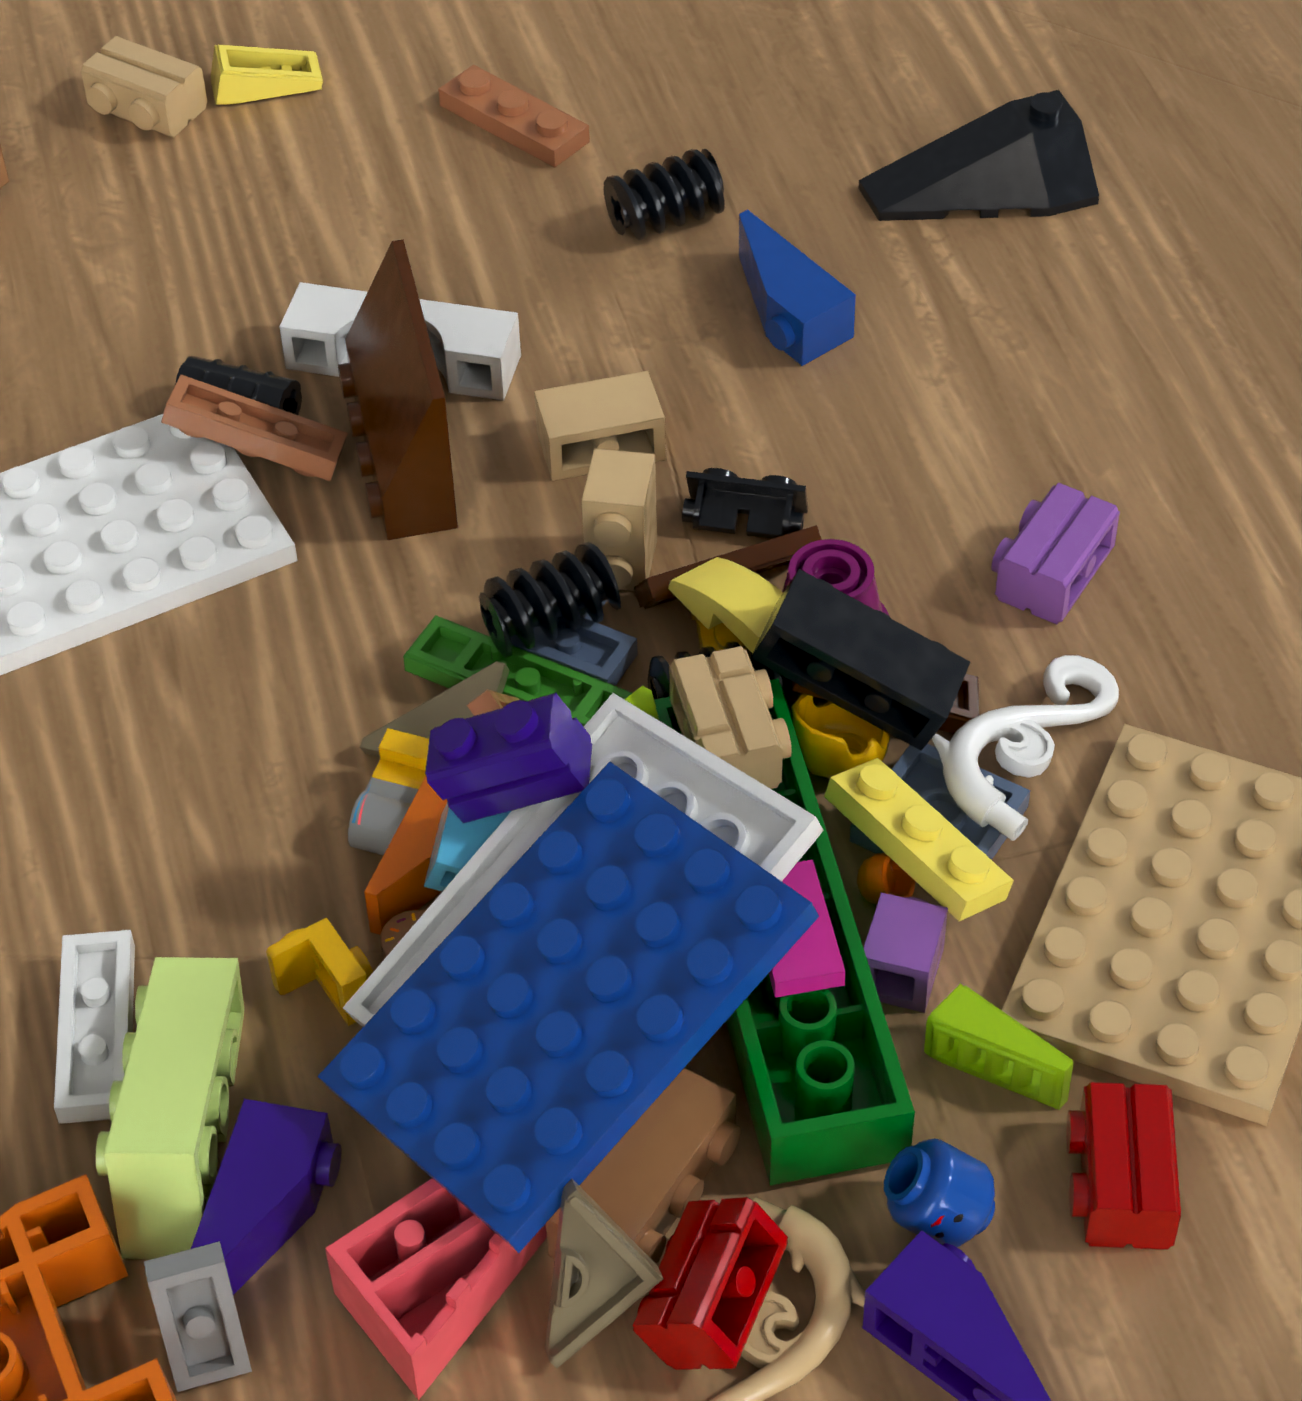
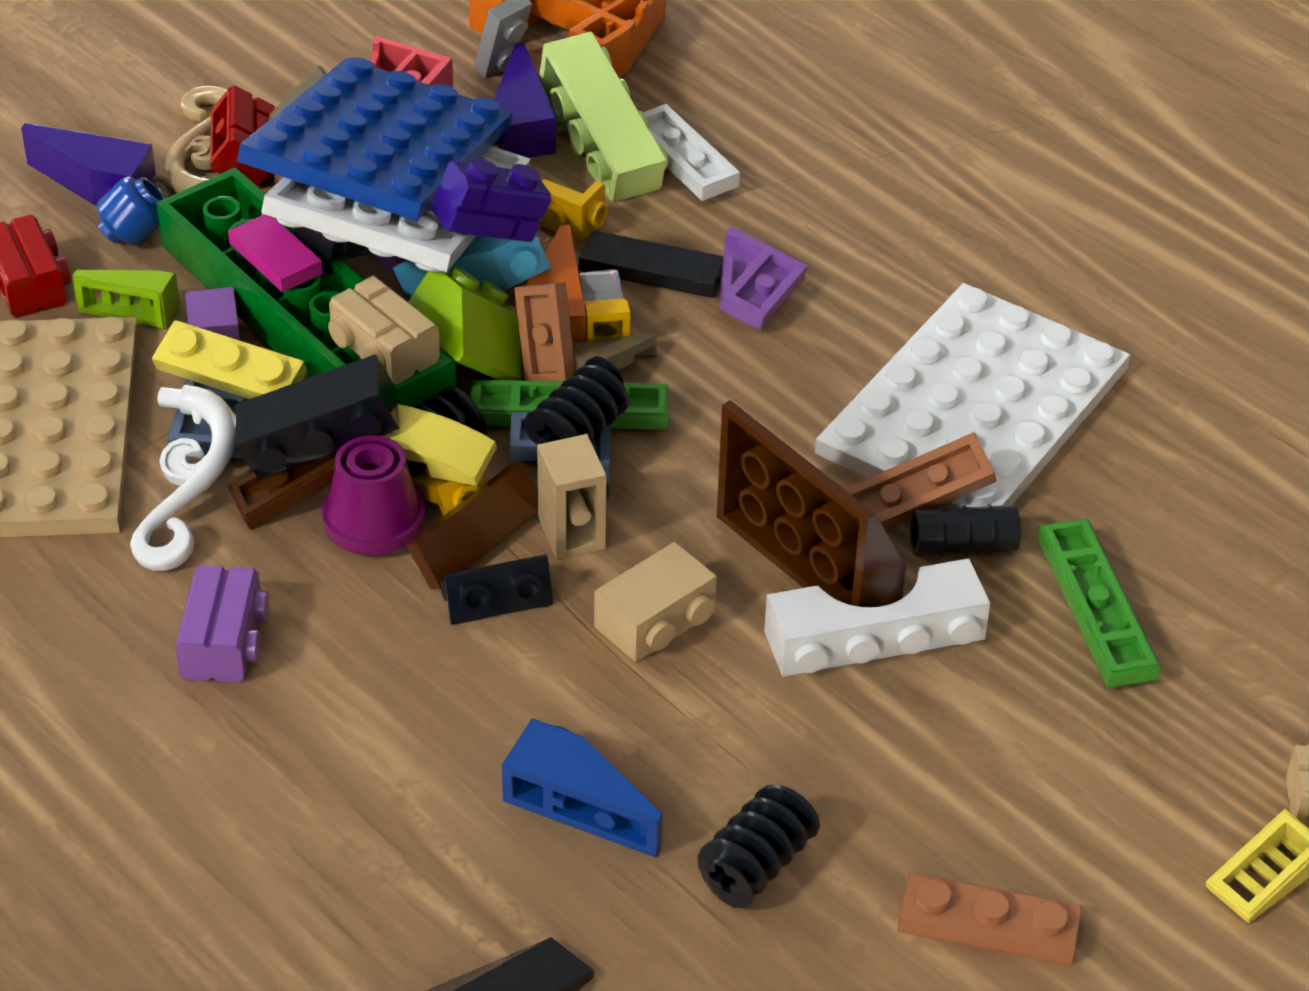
camera: 150 degrees right, 5 degrees down
(180, 297) = (1098, 603): none -> bright green plate
(184, 768) = (756, 278): none -> medium lavender wing
(277, 862) = (653, 263): none -> black tile

